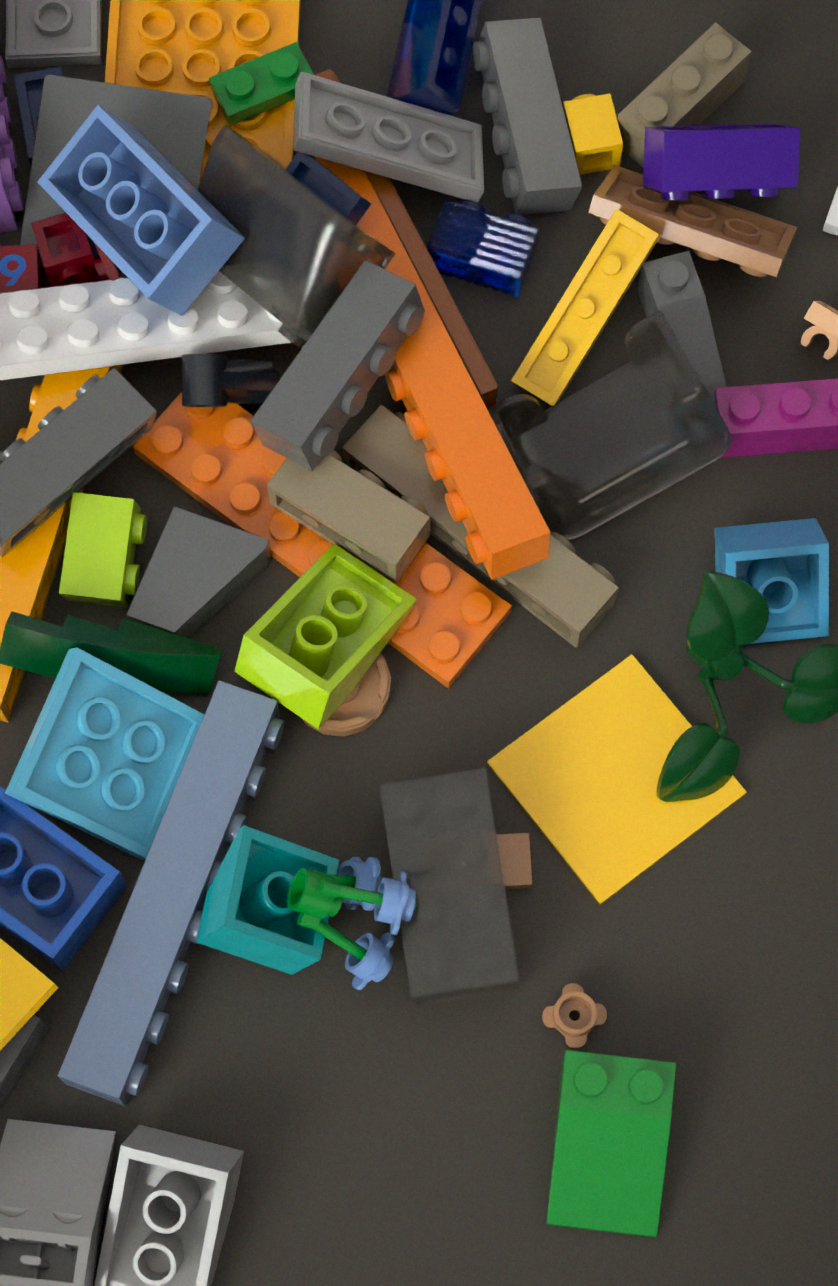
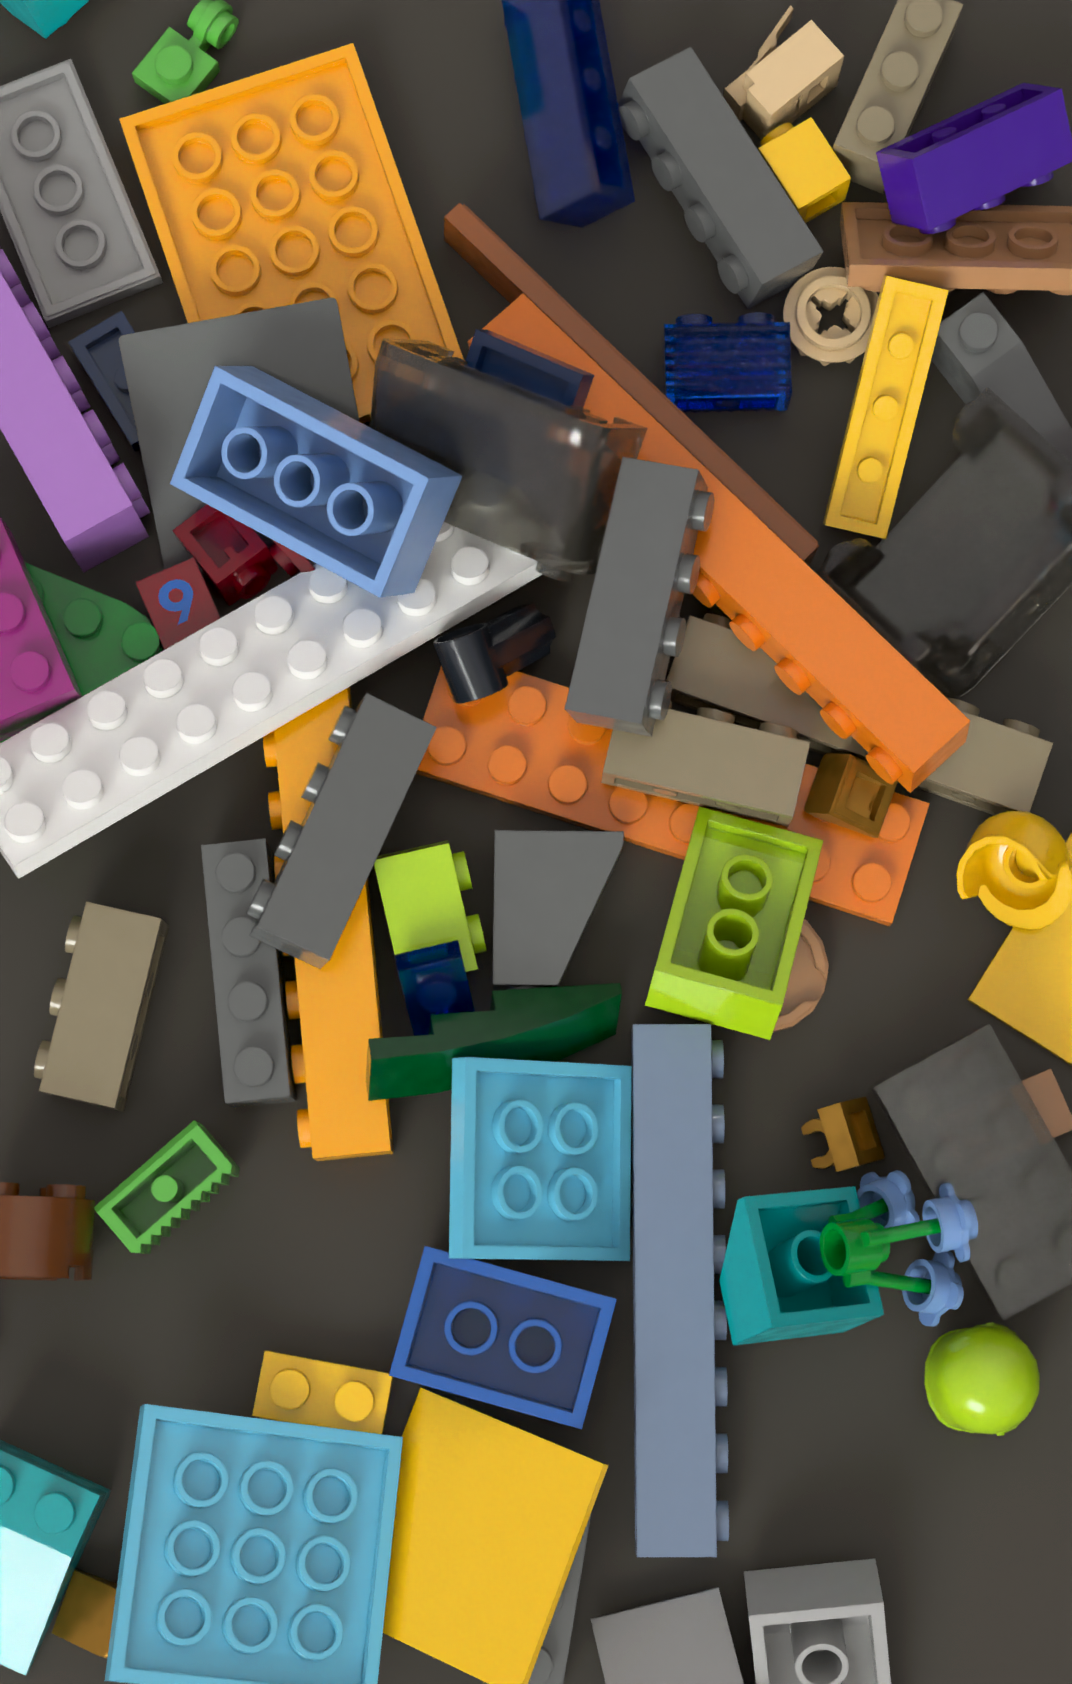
camera: 20 degrees left, 10 degrees up
(82, 593) = (433, 983): none -> clear blue plate
(259, 83) = (382, 248): green plate -> none
(352, 824) = (849, 1135): none -> pearl gold tile
(382, 1046) = (981, 1379): none -> lime helmet
(388, 137) = (567, 270): light grey tile -> none
(452, 575) = (850, 794): none -> pearl gold slope
(554, 236) = (827, 289): none -> tan gear
(557, 671) = (1017, 870): none -> yellow helmet
(605, 65) = (785, 78): none -> tan piece

